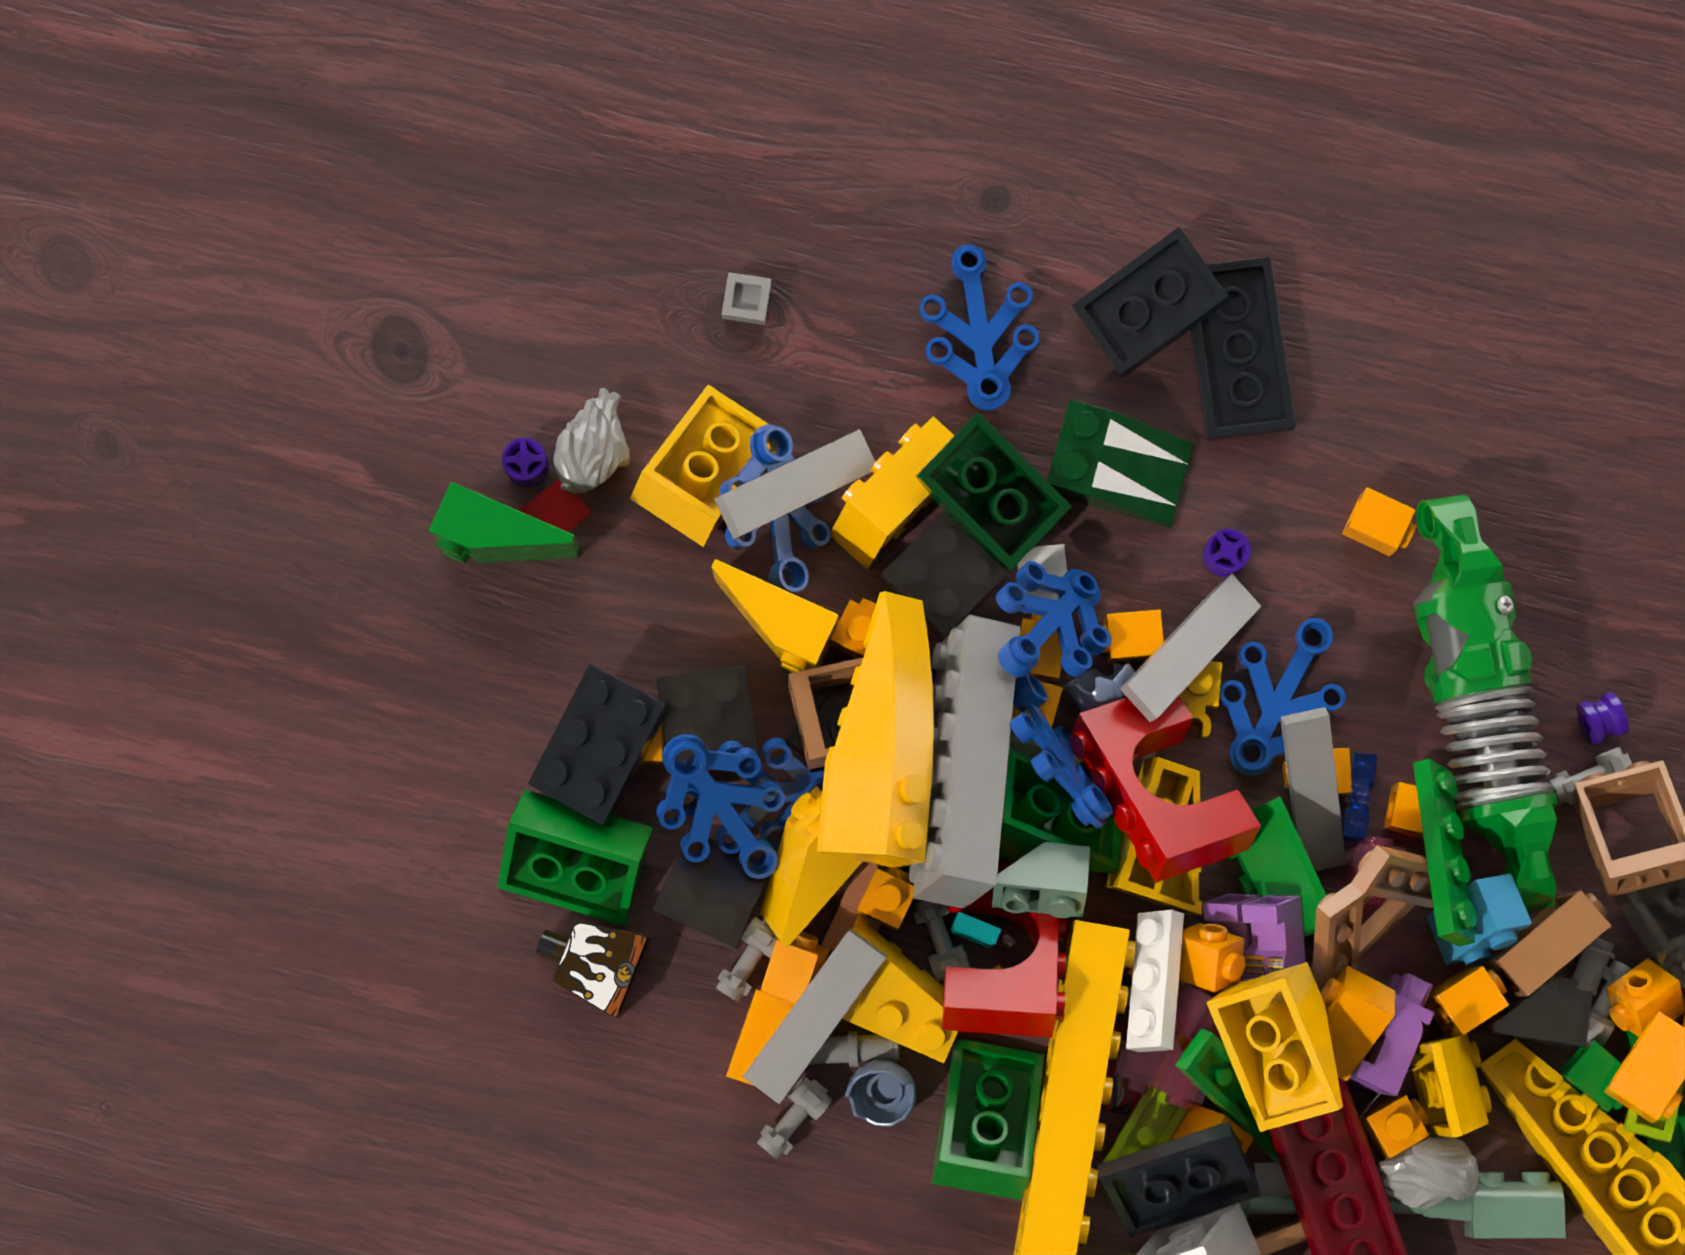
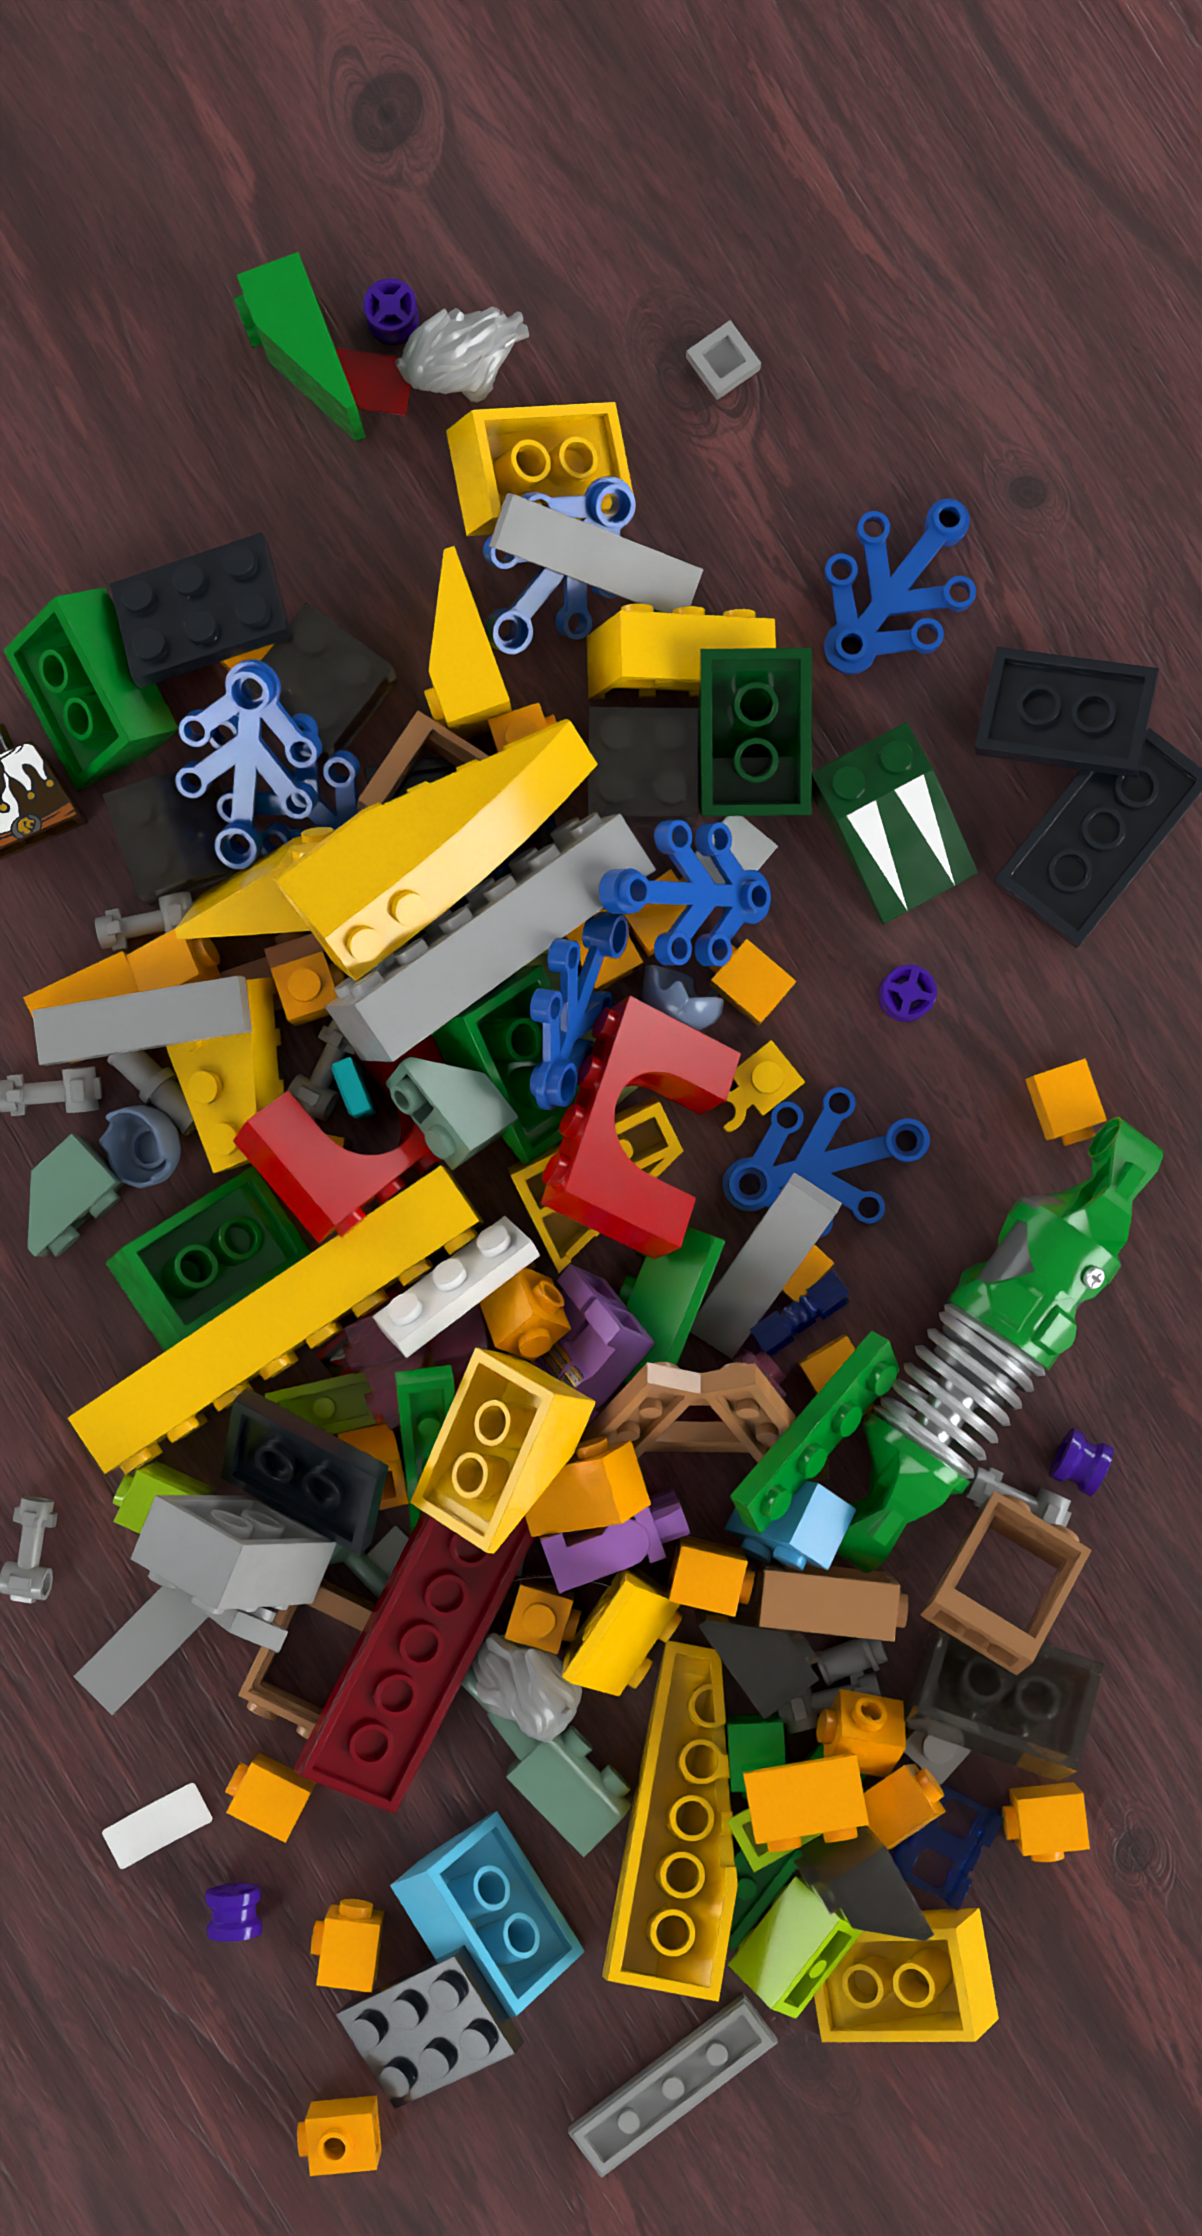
camera: 50 degrees right, 5 degrees up
(865, 1163) = (66, 1192): none -> sand green slope
(1190, 647) = (787, 1040): light grey tile -> none

